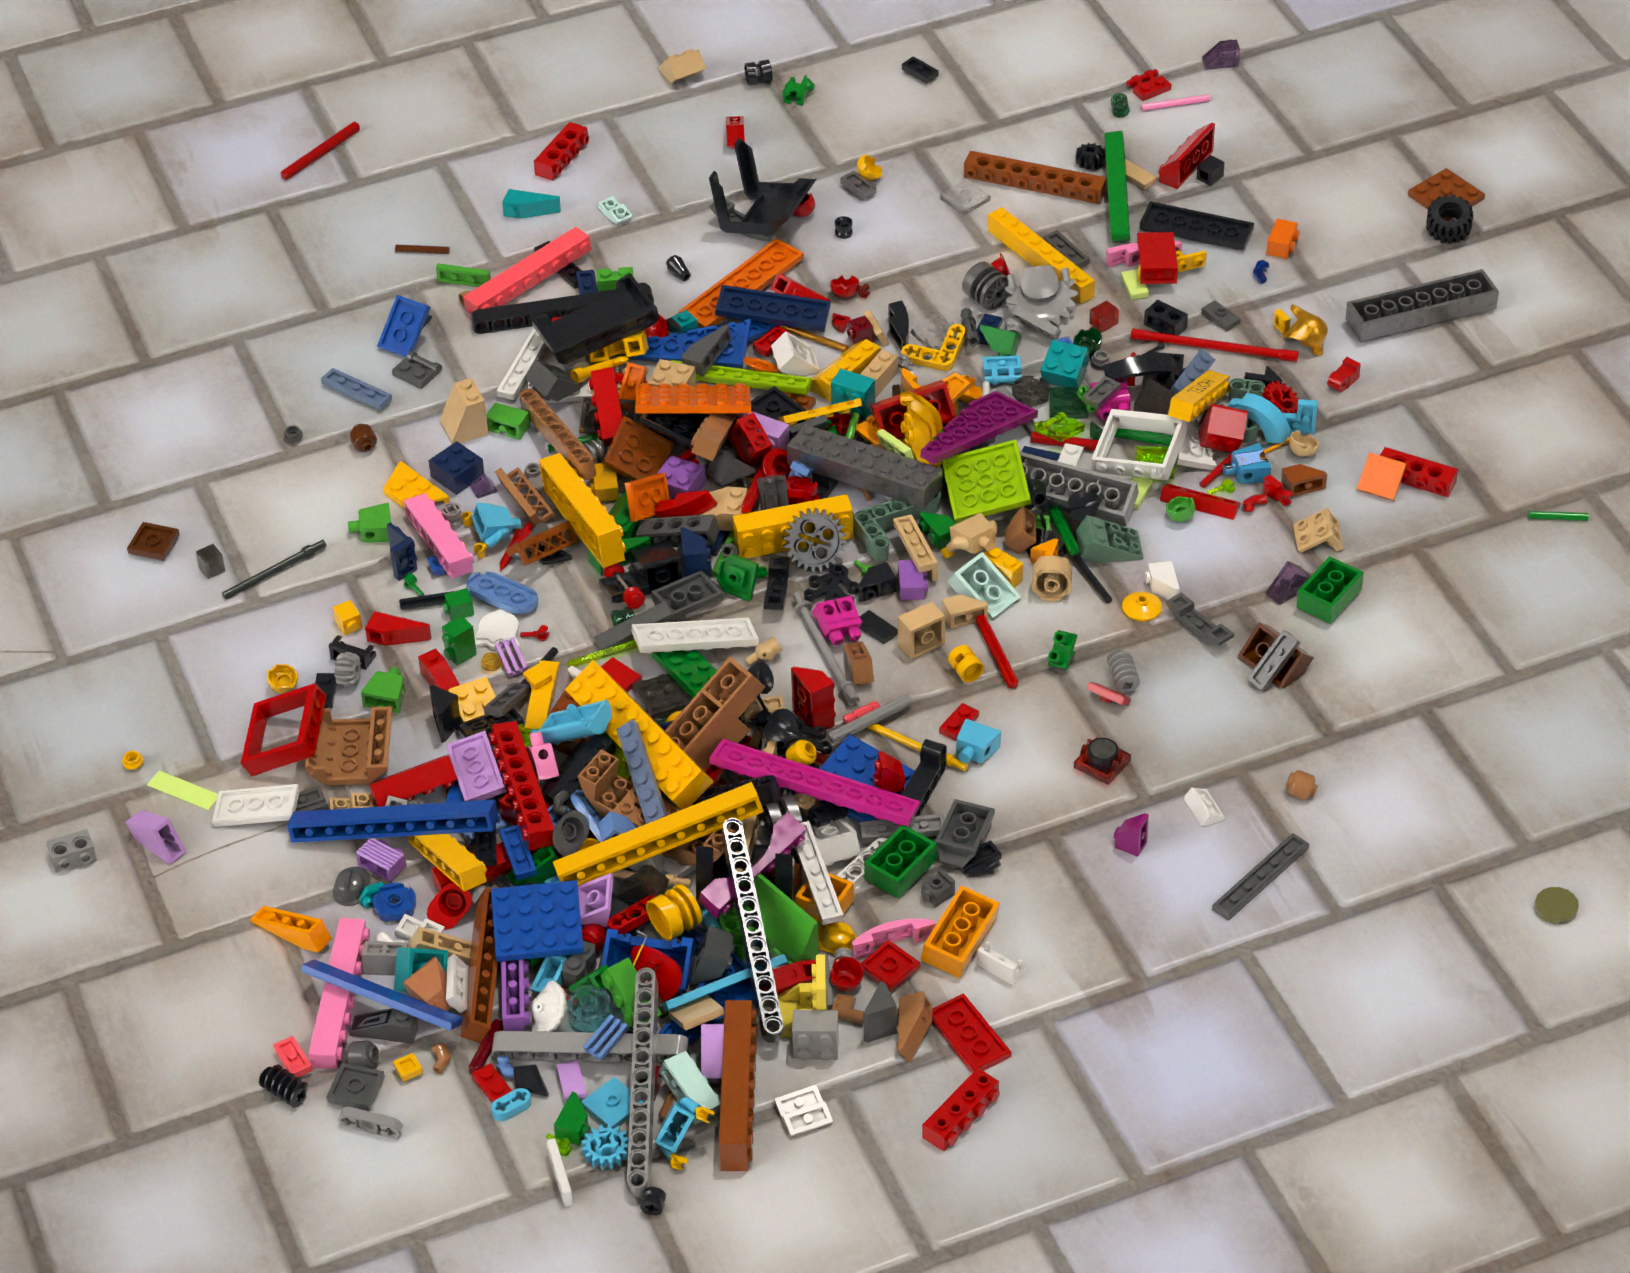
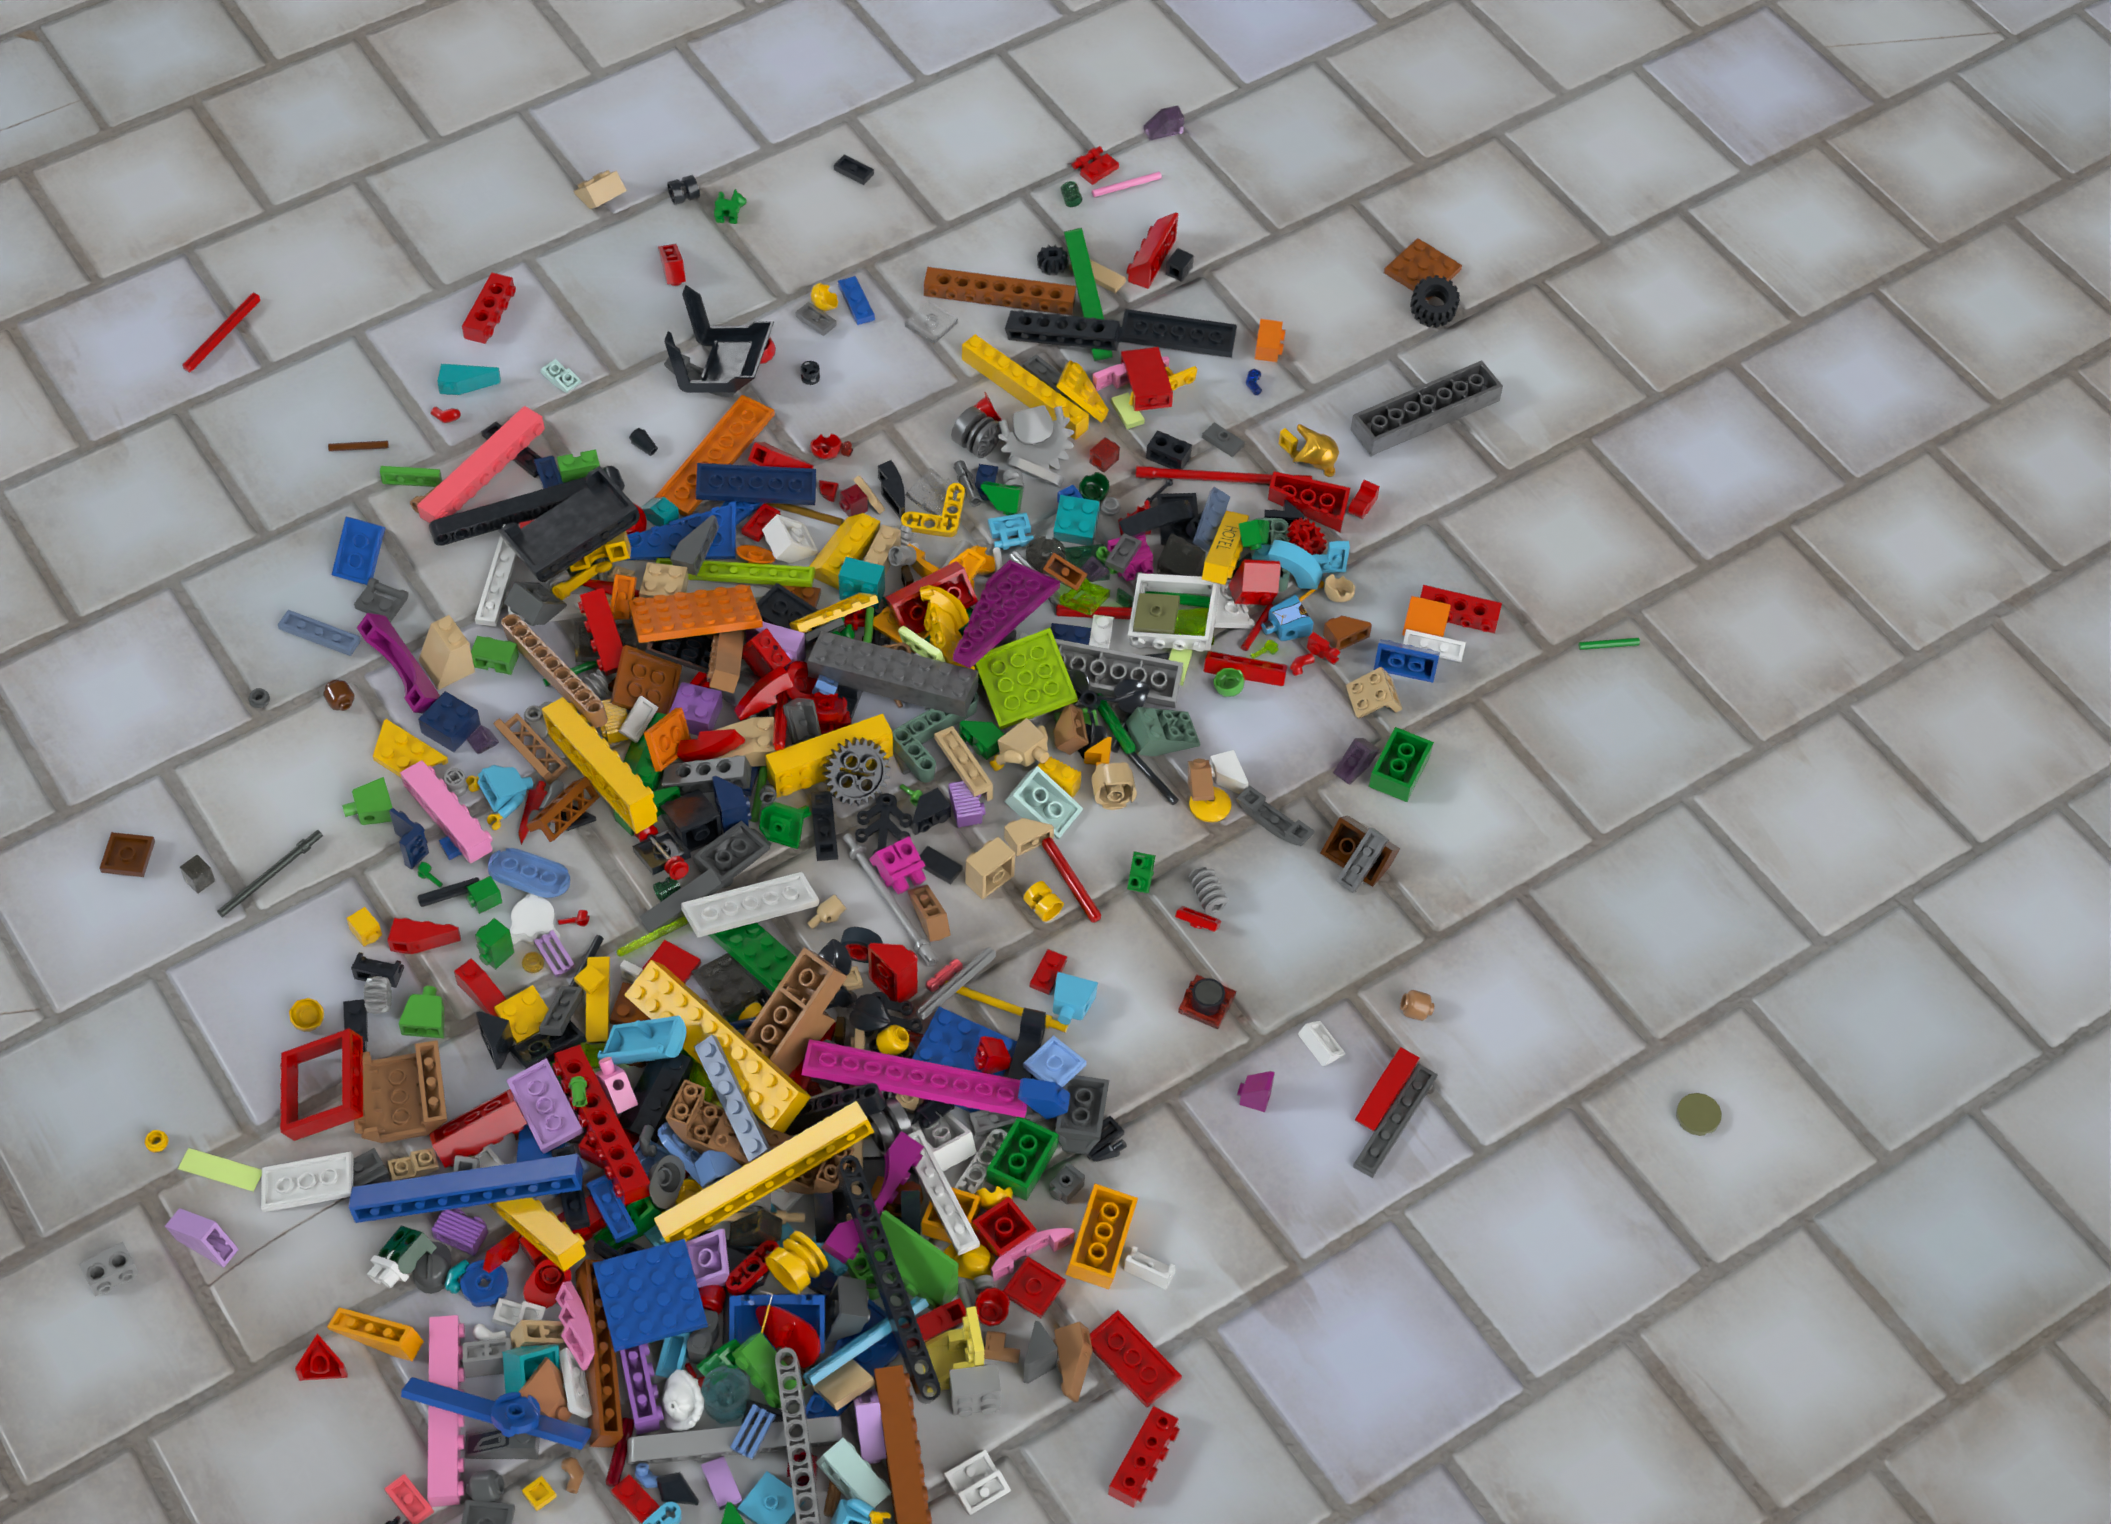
camera: 15 degrees left, 10 degrees up
(237, 942) = (320, 1362): none -> red slope
(324, 868) = (399, 1256): none -> hips
(397, 993) = (515, 1424): none -> blue plate
(412, 397) = (383, 637): none -> magenta arch
(414, 876) = (502, 1251): none -> red plate
(467, 938) = (577, 1328): none -> bright pink slope
(506, 232) = (447, 415): none -> red arm
(506, 749) = (578, 1087): none -> bright green pin
(629, 473) = (638, 719): none -> white tile
(741, 468) = (763, 693): none -> red slope
(782, 676) = (857, 941): none -> black wheel
(868, 890) = (989, 1199): none -> yellow hair
(868, 910) = (1002, 1227): none -> red slope
(894, 376) = (902, 555): none -> light grey wheel
(899, 174) = (856, 300): none -> blue plate
(929, 811) = (1044, 1097): none -> blue slope
(946, 789) = (1054, 1062): none -> light blue tile
(1043, 402) = (1065, 572): none -> dark orange slope
(1072, 405) = (1094, 569): none -> clear purple slope
(1086, 211) = (1063, 330): none -> black brick
(1092, 259) = (1080, 389): none -> yellow plate
(1121, 442) = (1156, 613): none -> olive plate
(1134, 580) = (1200, 780): none -> medium nougat slope
(1228, 385) = (1254, 533): none -> green slope
(1257, 848) = (1387, 1089): none -> red slope
(1297, 369) = (1315, 499): none -> red wedge
(1356, 508) = (1407, 660): none -> blue slope
(1385, 499) = (1448, 648): none -> white tile

